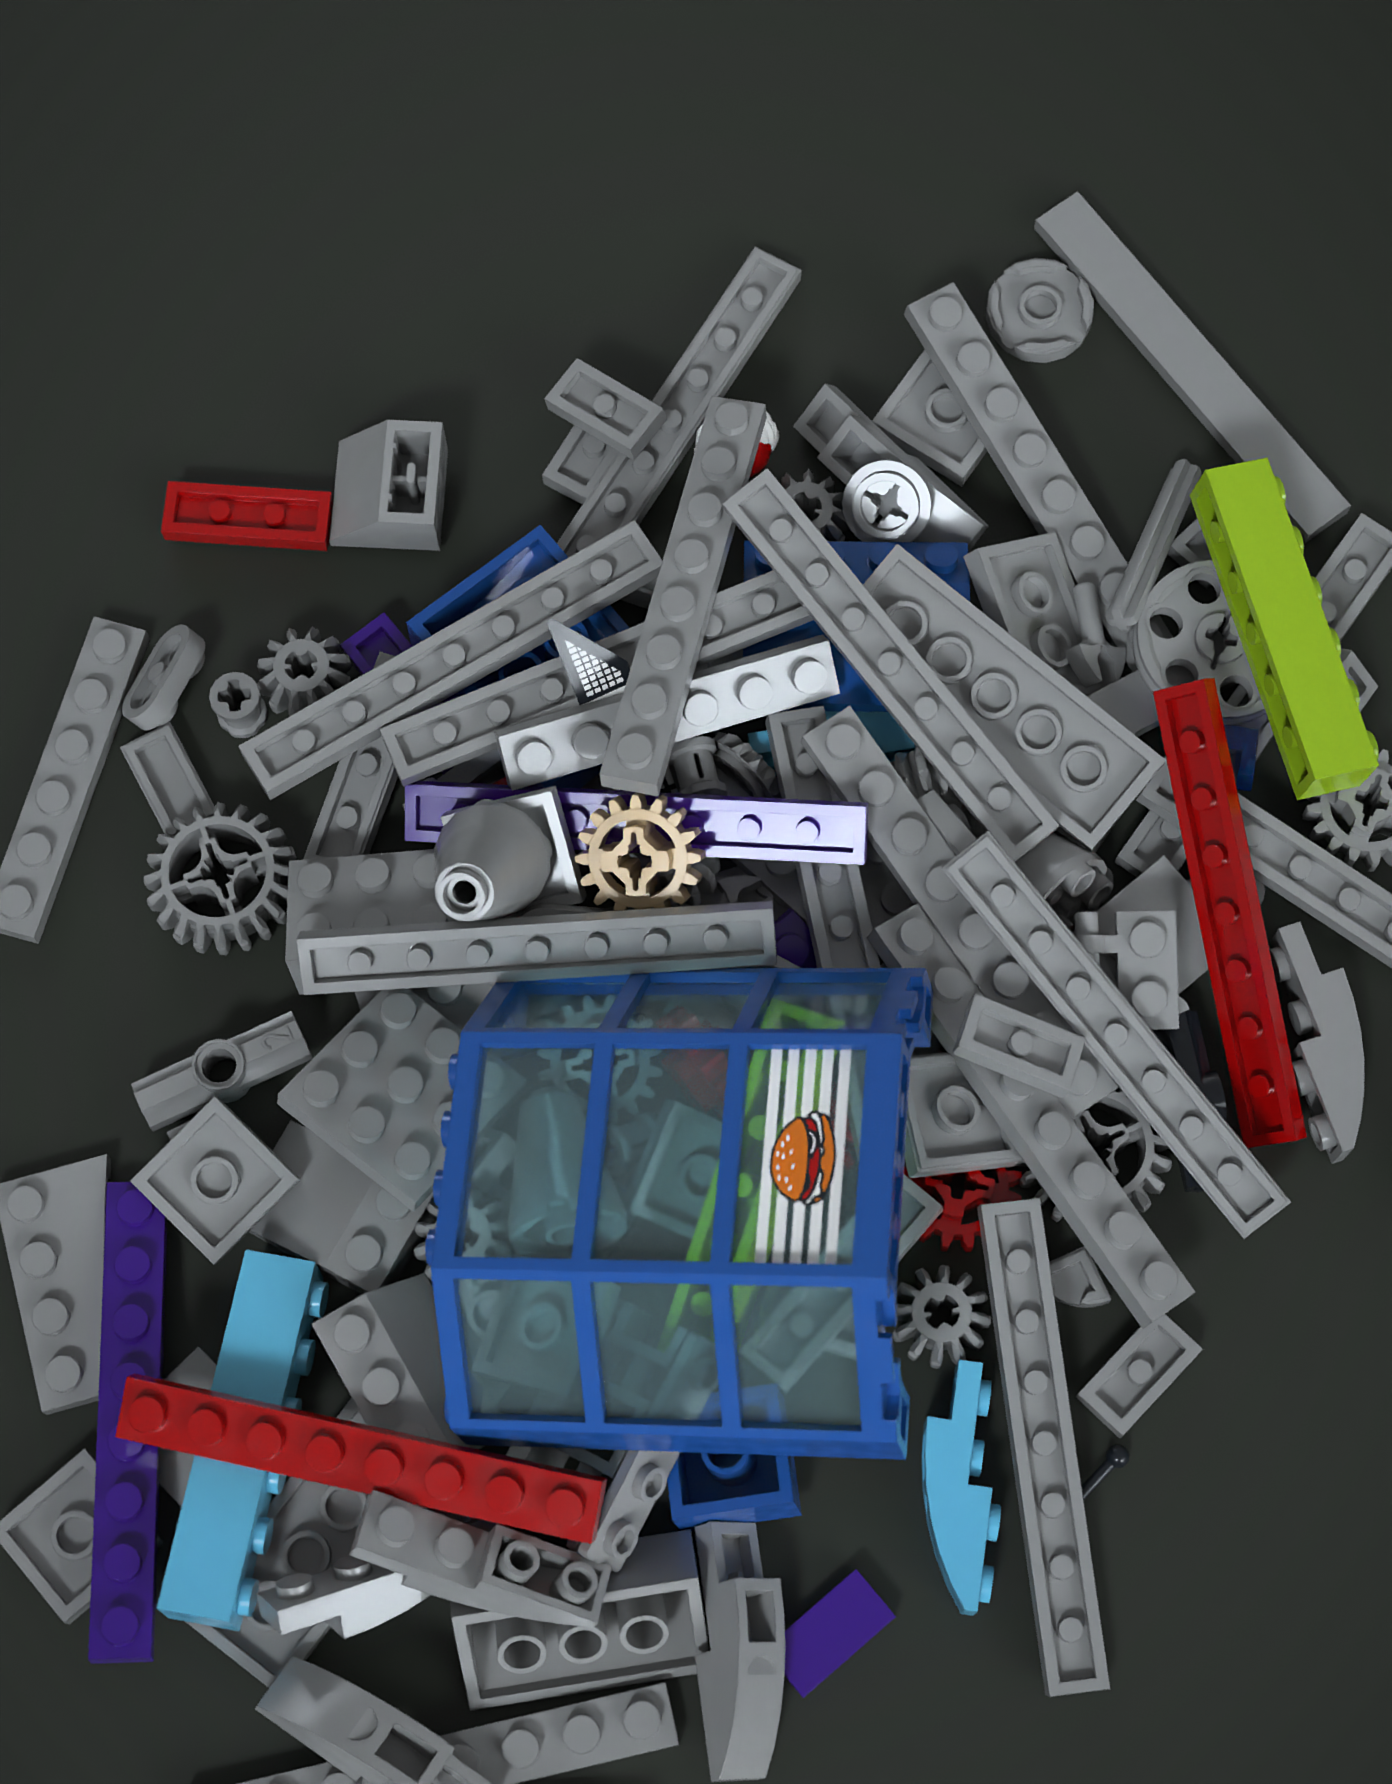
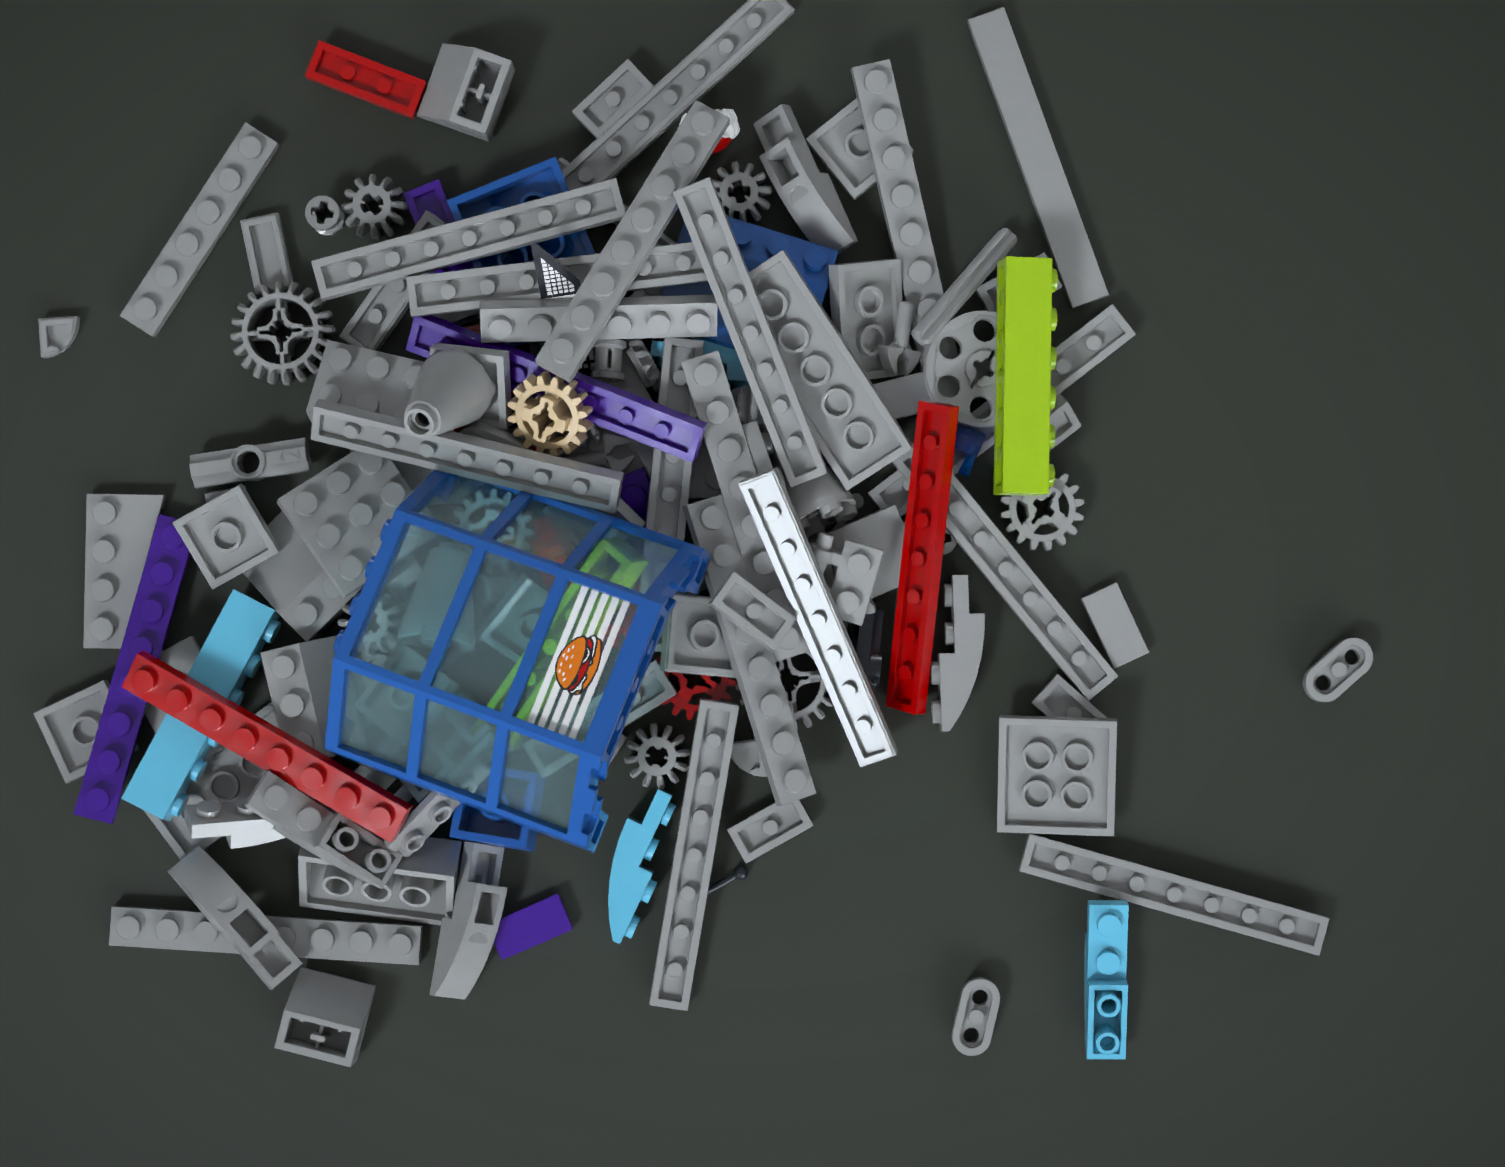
camera: 15 degrees right, 15 degrees up
(163, 678) = (281, 181): light grey plate -> none
(605, 409) = (625, 80): light grey plate -> none
(861, 508) = (776, 204): gear -> none
(1039, 310) = (949, 86): light grey tile -> none

